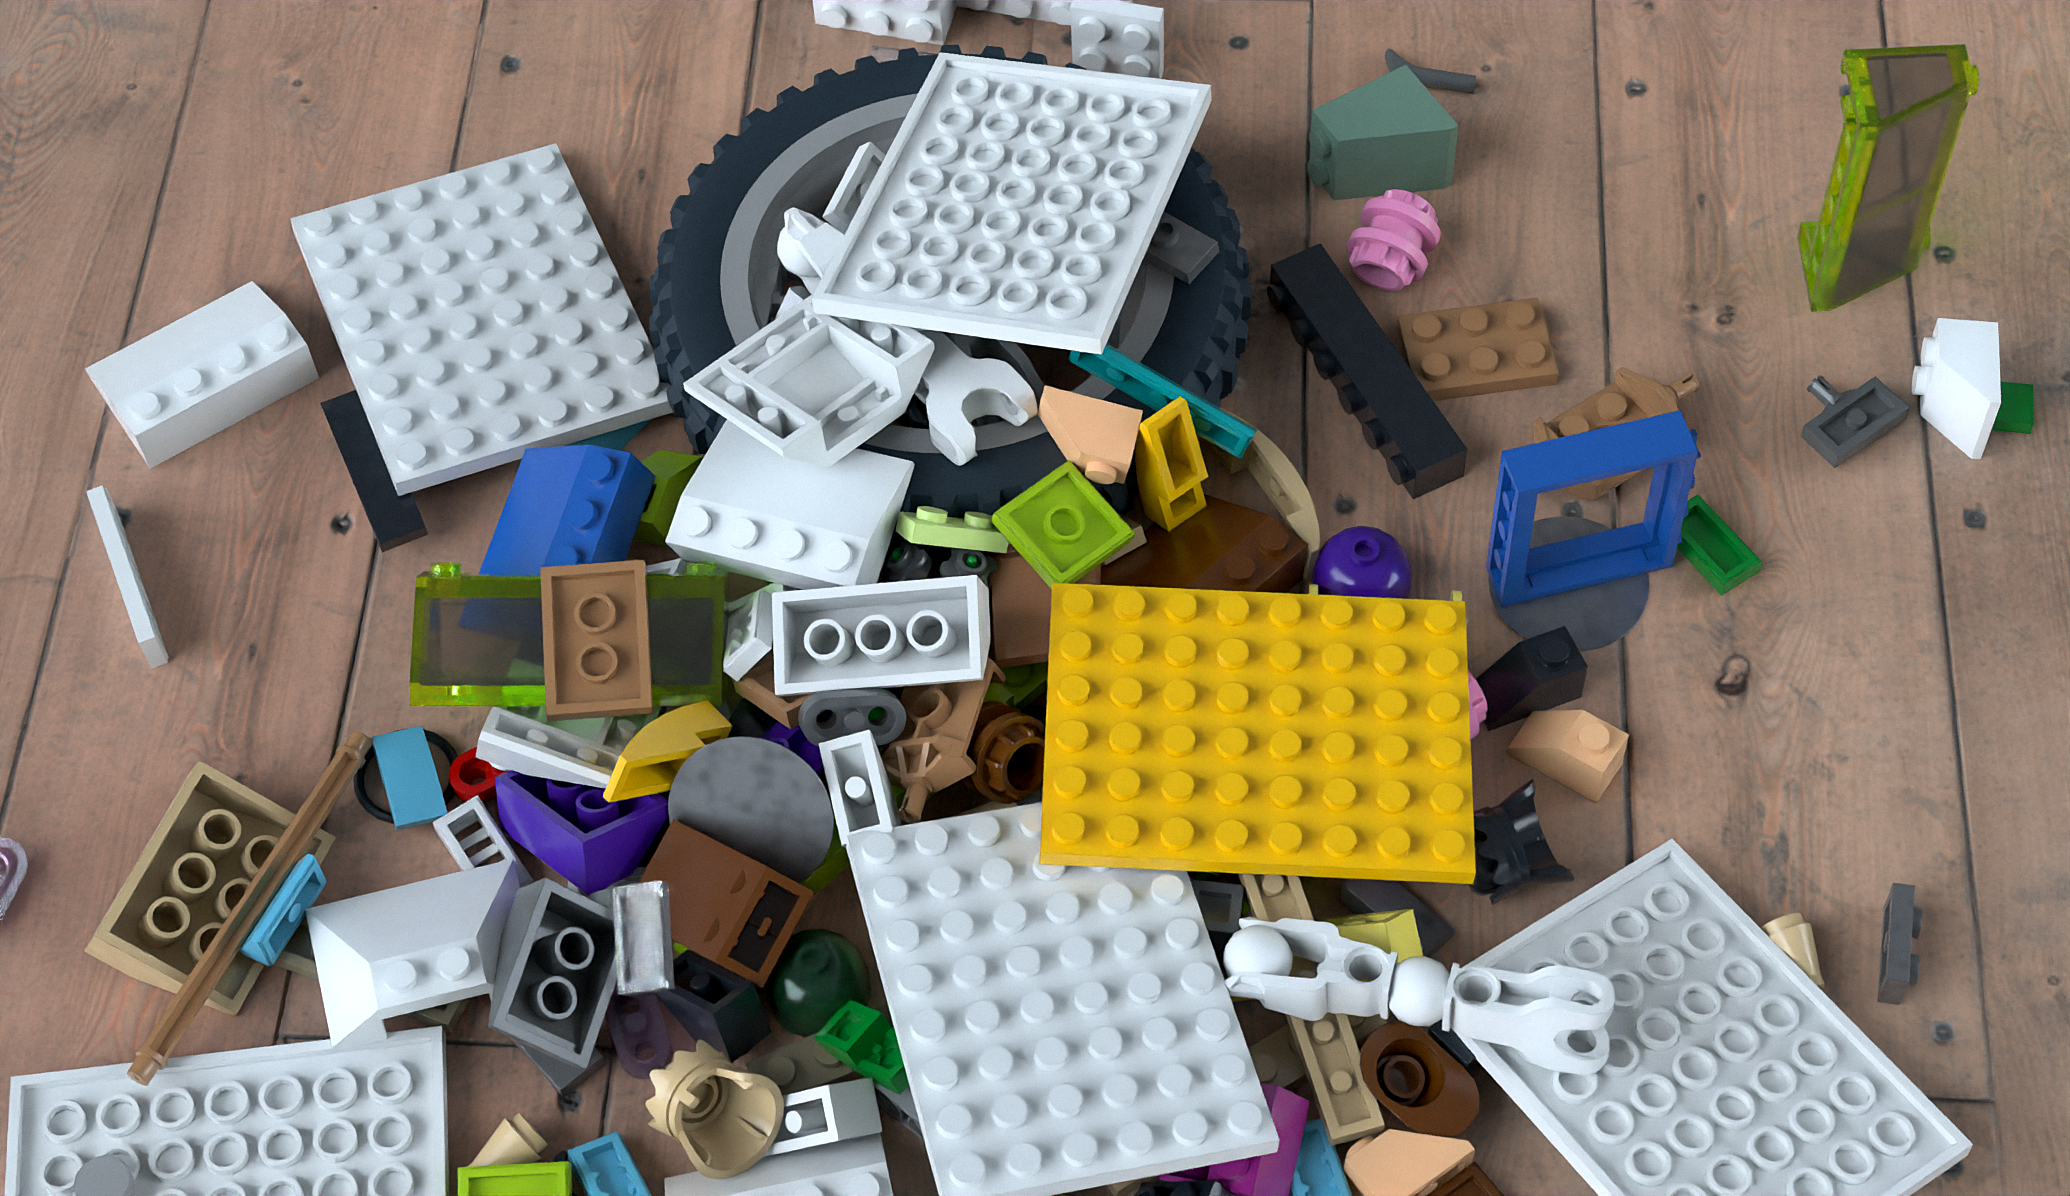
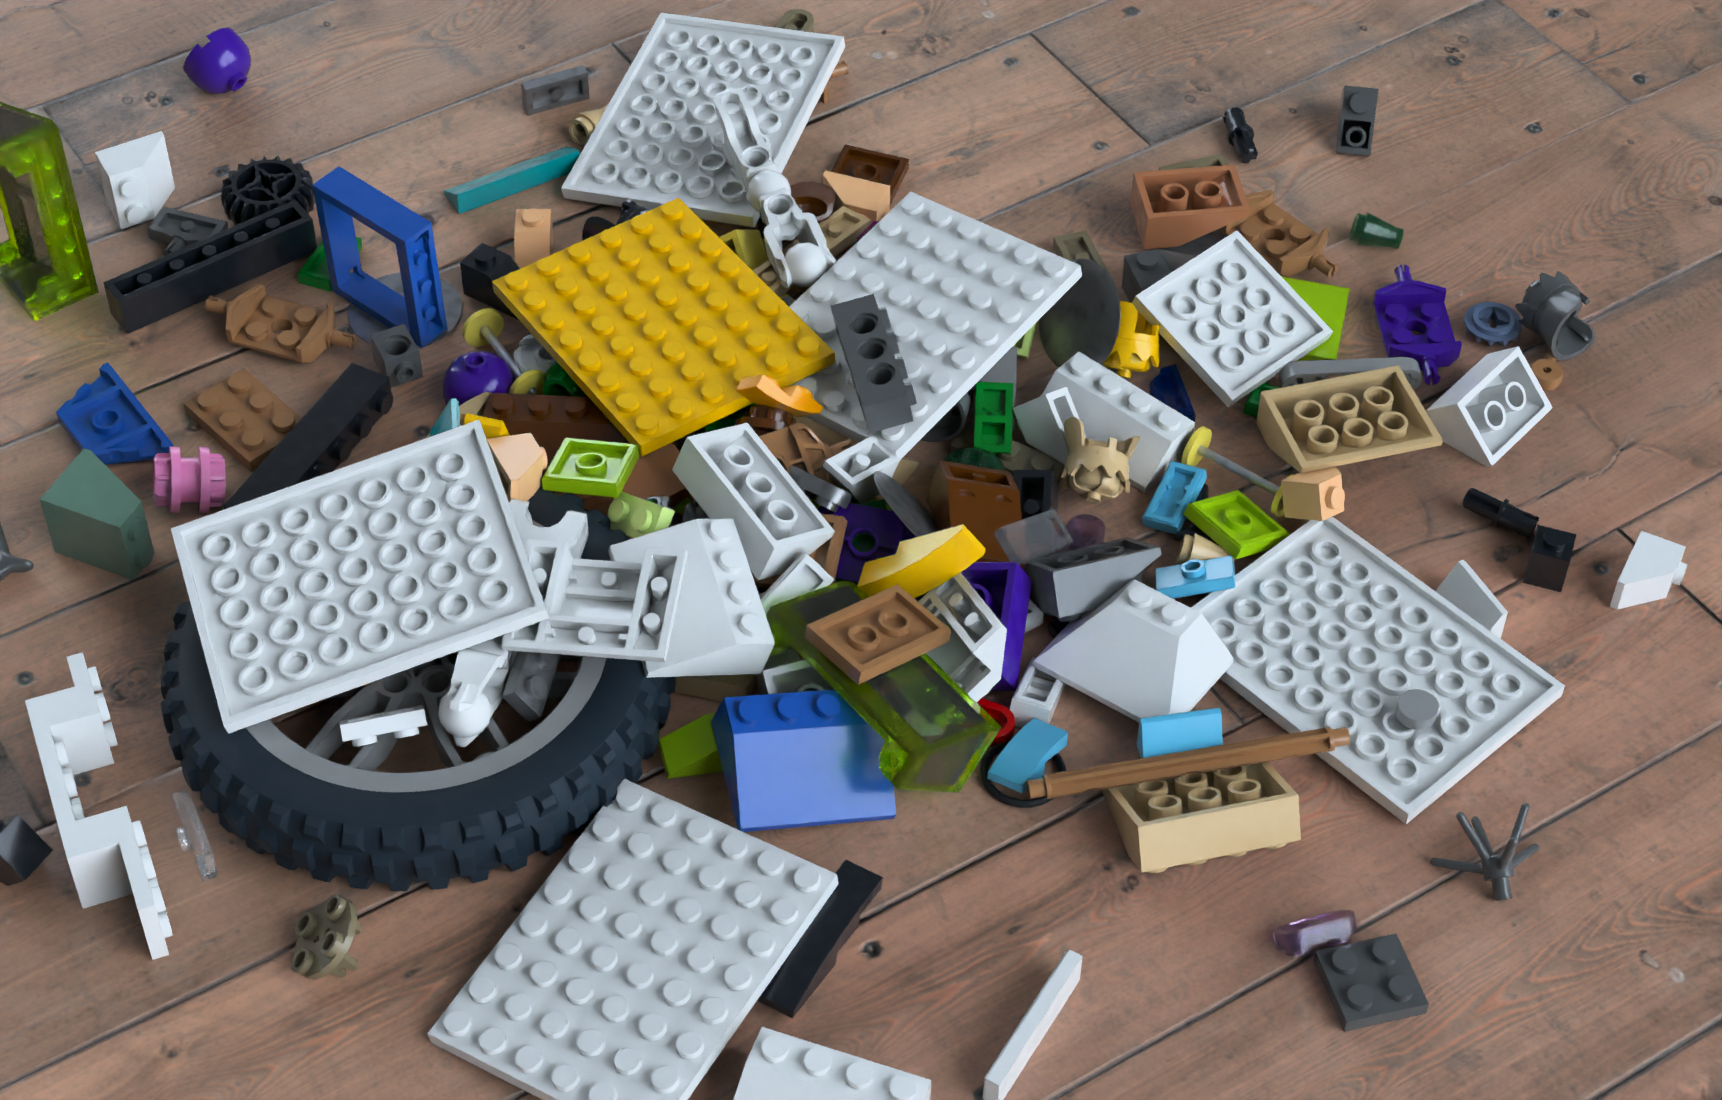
camera: 130 degrees left, 10 degrees down
(477, 1108) = (1196, 577): none -> medium azure plate
(705, 103) = (326, 939): none -> dark tan plate
(1003, 863) = (872, 363): none -> dark grey brick
(1010, 766) = (766, 392): none -> light orange slope
(1468, 500) = (396, 355): none -> dark grey brick
(1554, 226) = (112, 421): none -> blue wing
(1746, 810) = (512, 179): none -> teal slope
(1750, 403) = (210, 266): none -> black brick
(1860, 516) = (264, 187): none -> black gear

